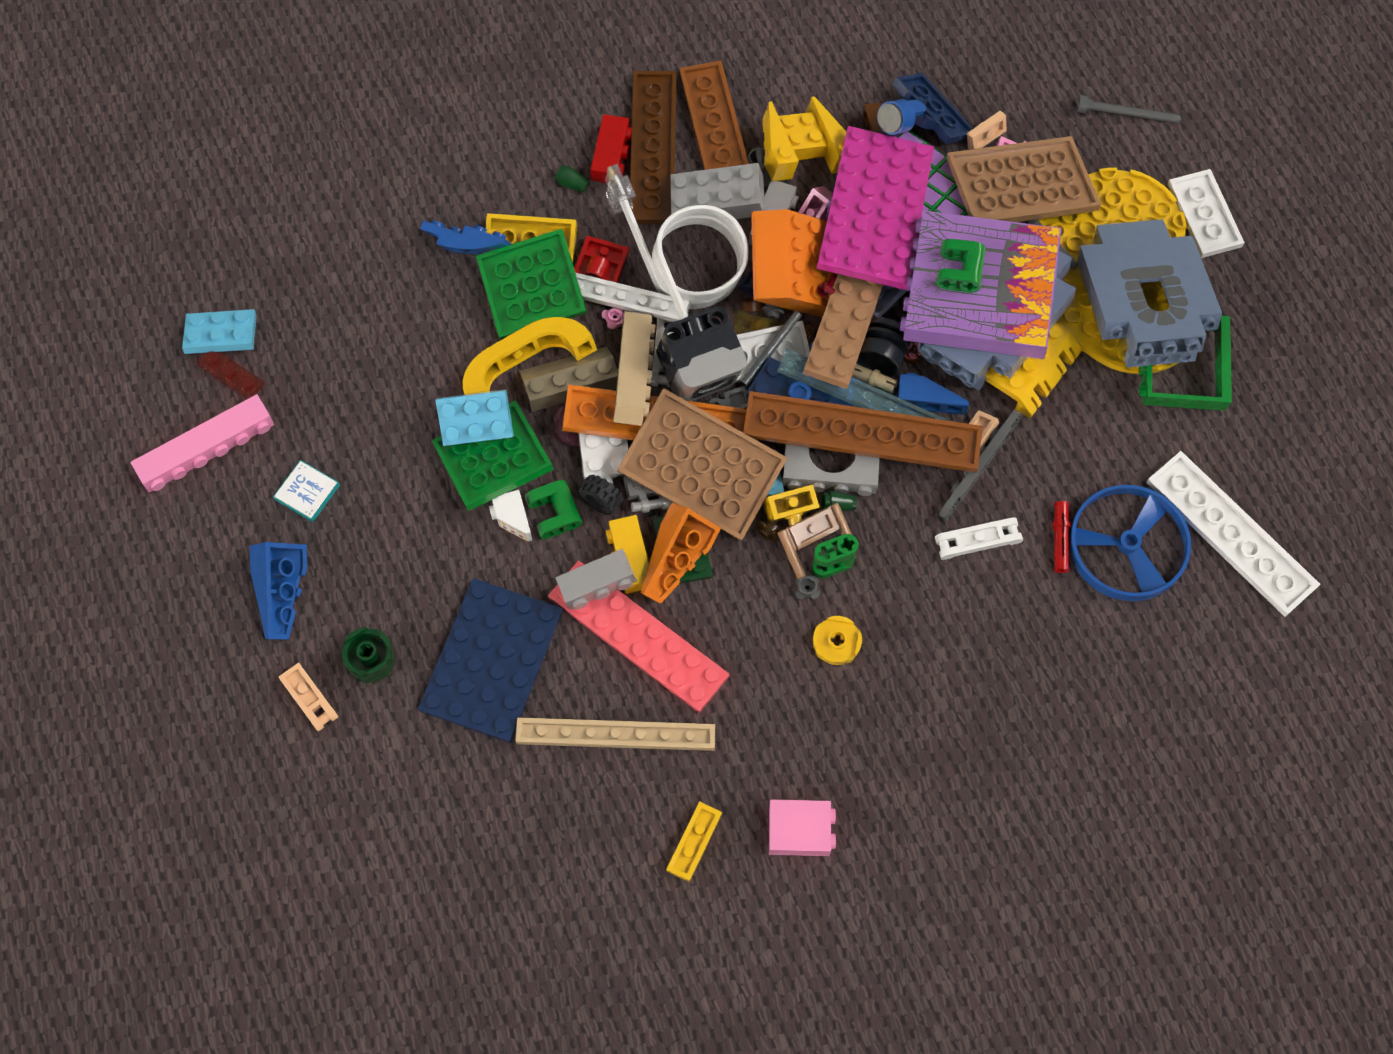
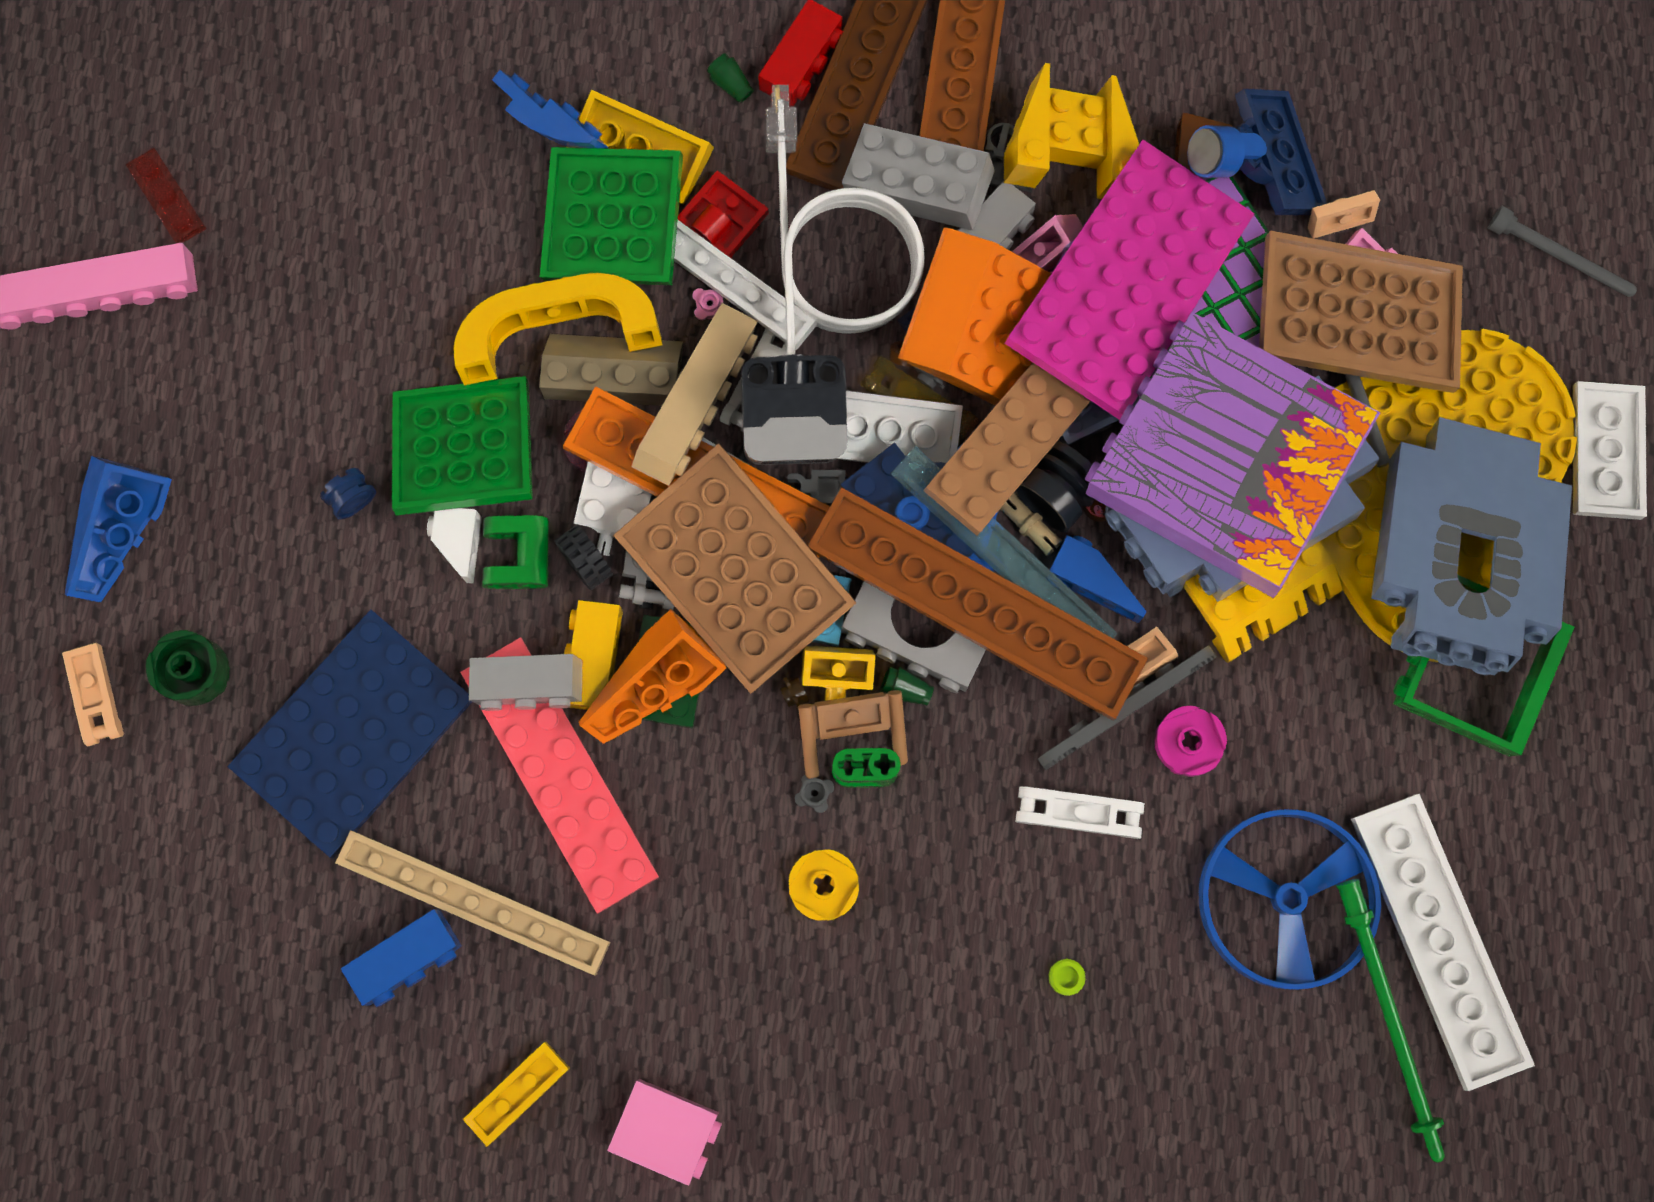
camera: 20 degrees right, 10 degrees up
(219, 331) = (172, 132): medium azure plate -> none
(306, 491) = (201, 402): white tile -> none
(429, 511) = (348, 493): none -> dark blue wheel
(474, 417) = (453, 385): medium azure plate -> none
(584, 785) = (402, 959): none -> blue brick
(771, 348) = (902, 430): dark grey bar -> none
(827, 288) = (1009, 377): dark red hand -> none
(972, 256) = (1230, 415): green connector -> none
(1013, 640) = (1067, 977): none -> lime tile
(1029, 459) = (1198, 723): none -> dark pink plate
(1061, 536) = (1202, 840): red pin -> none
(1177, 535) = (1359, 918): none -> green bar

